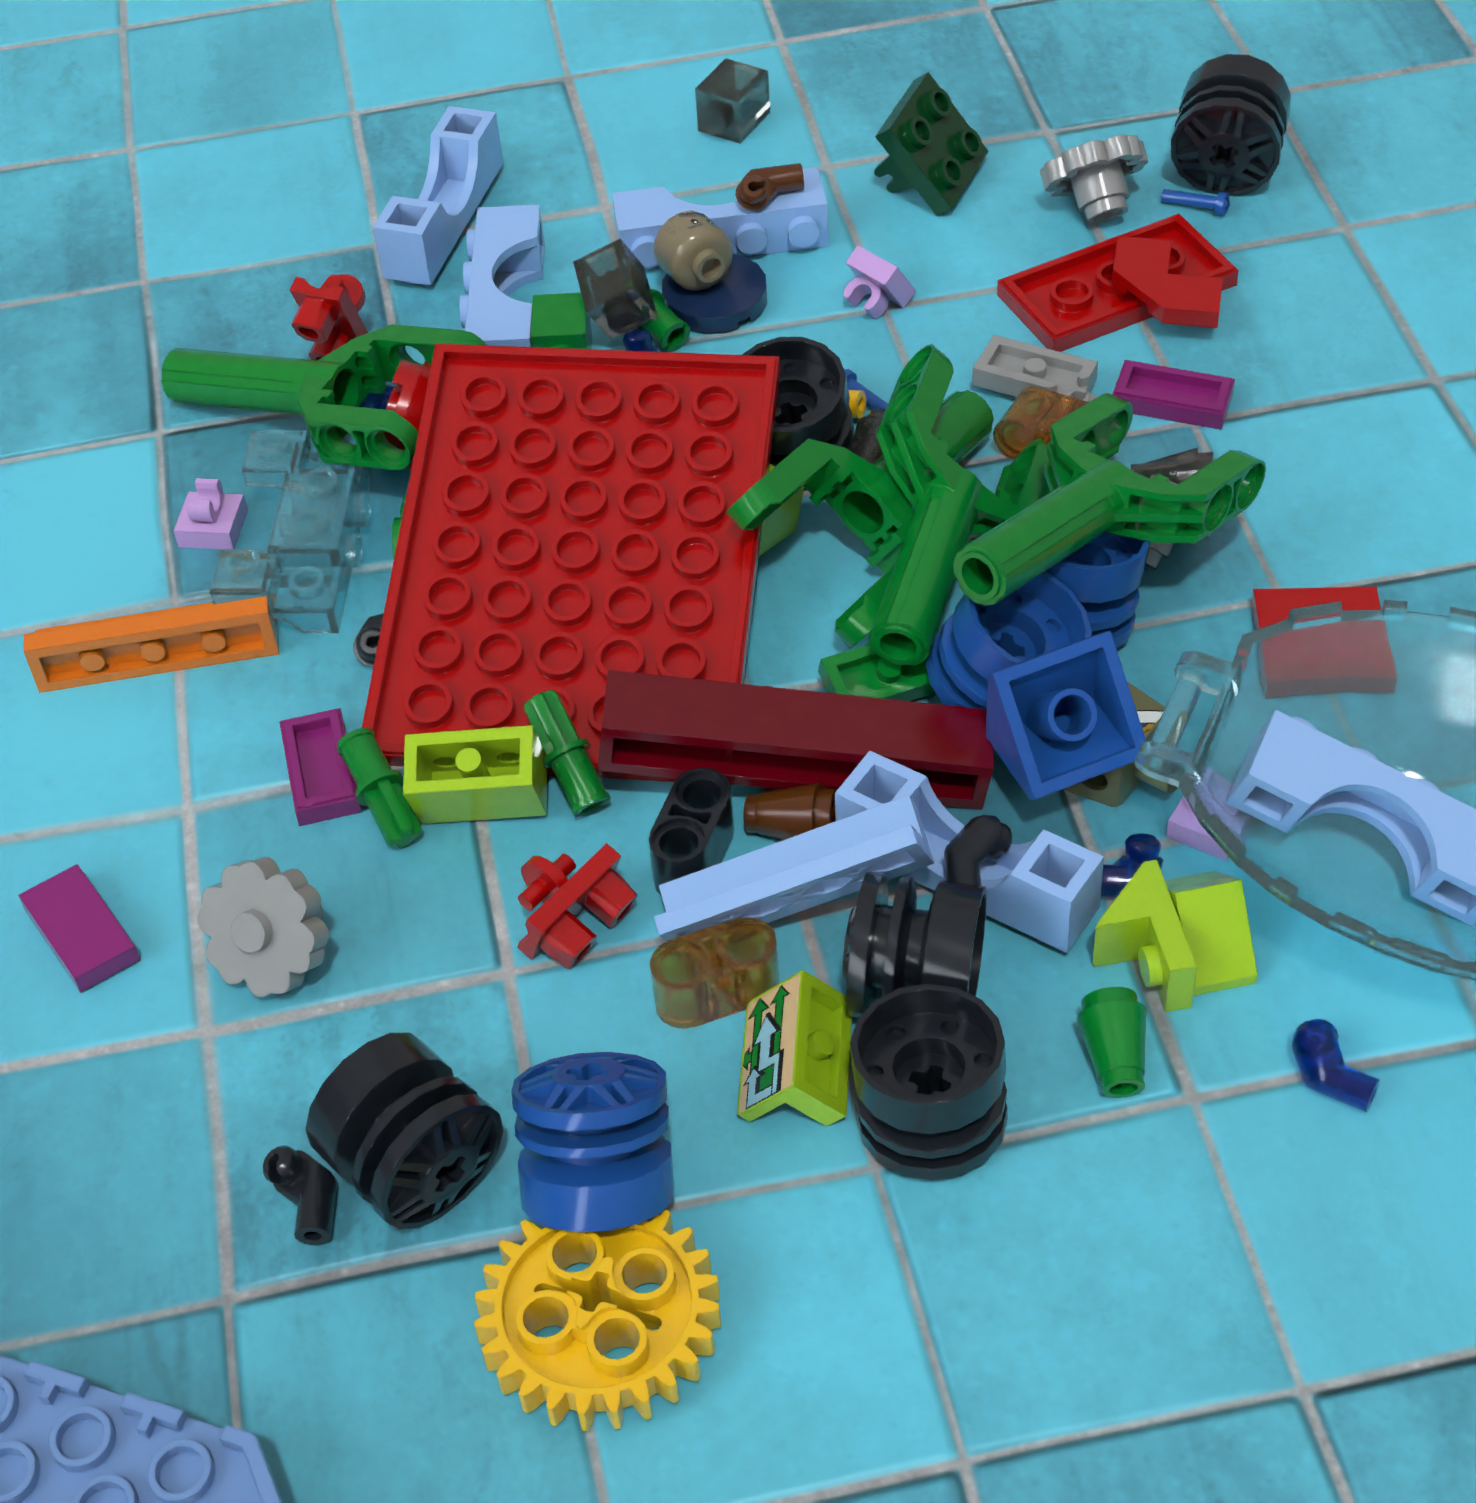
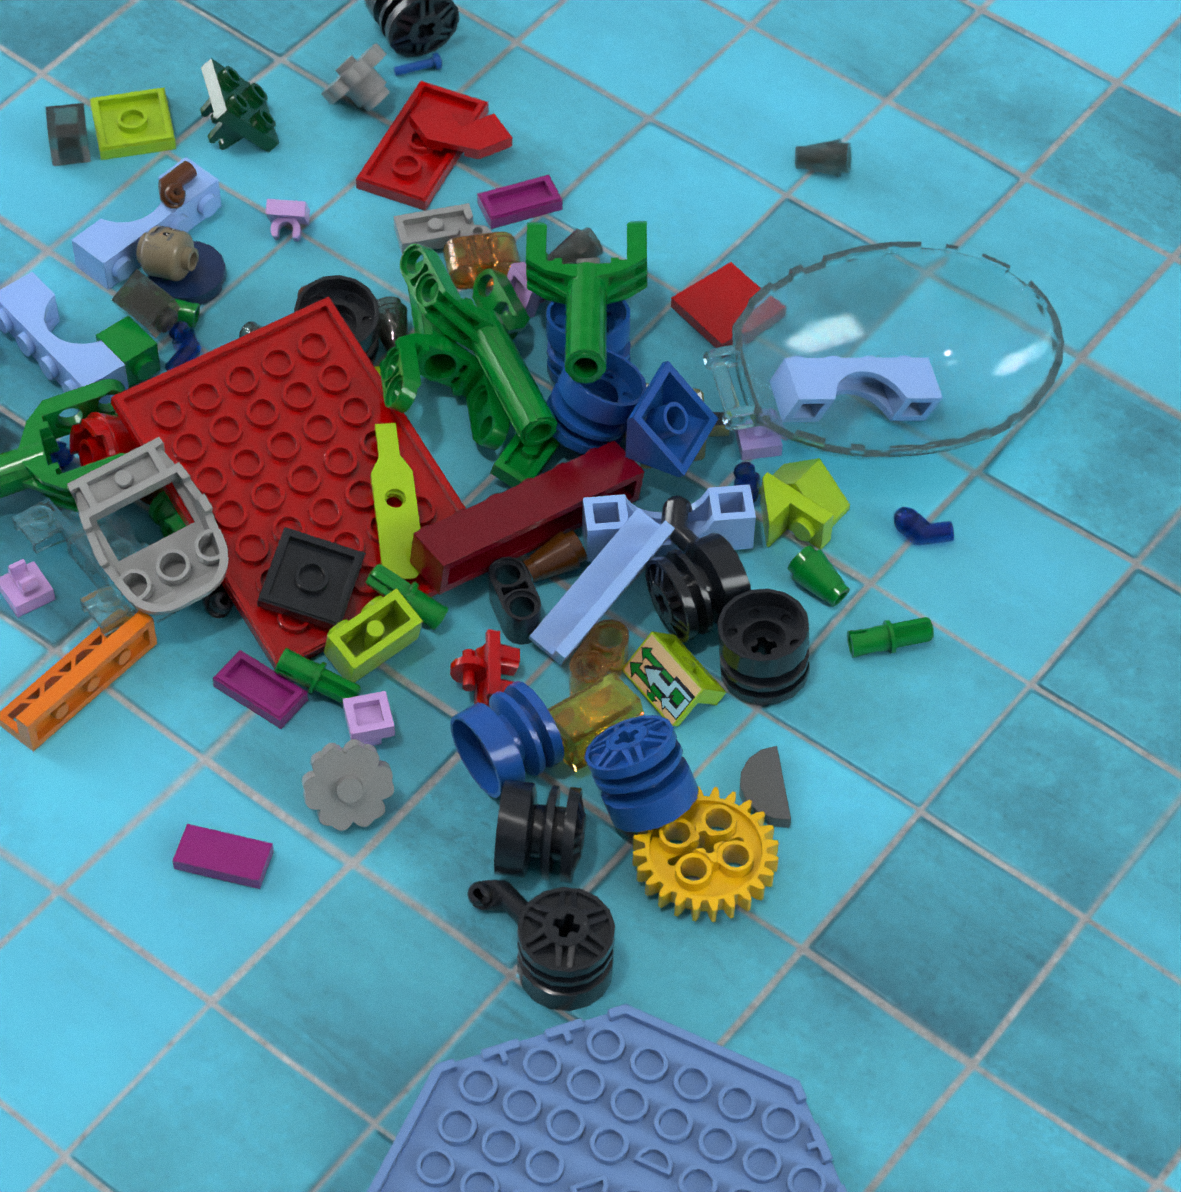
camera: 45 degrees left, 5 degrees up
(284, 1307) = (565, 948): none -> black wheel
(337, 567) = (172, 569): none -> light grey slope
(377, 867) = (369, 718): none -> lavender tile
(475, 666) = (311, 579): none -> black tile
(479, 989) = (507, 738): none -> blue wheel
(633, 1020) = (590, 713): none -> clear yellow brick
(663, 602) = (395, 525): none -> lime piece
(772, 1275) = (764, 785): none -> dark grey tile
(818, 124) = (132, 123): none -> lime tile
(1140, 1184) = (889, 636): none -> green axle

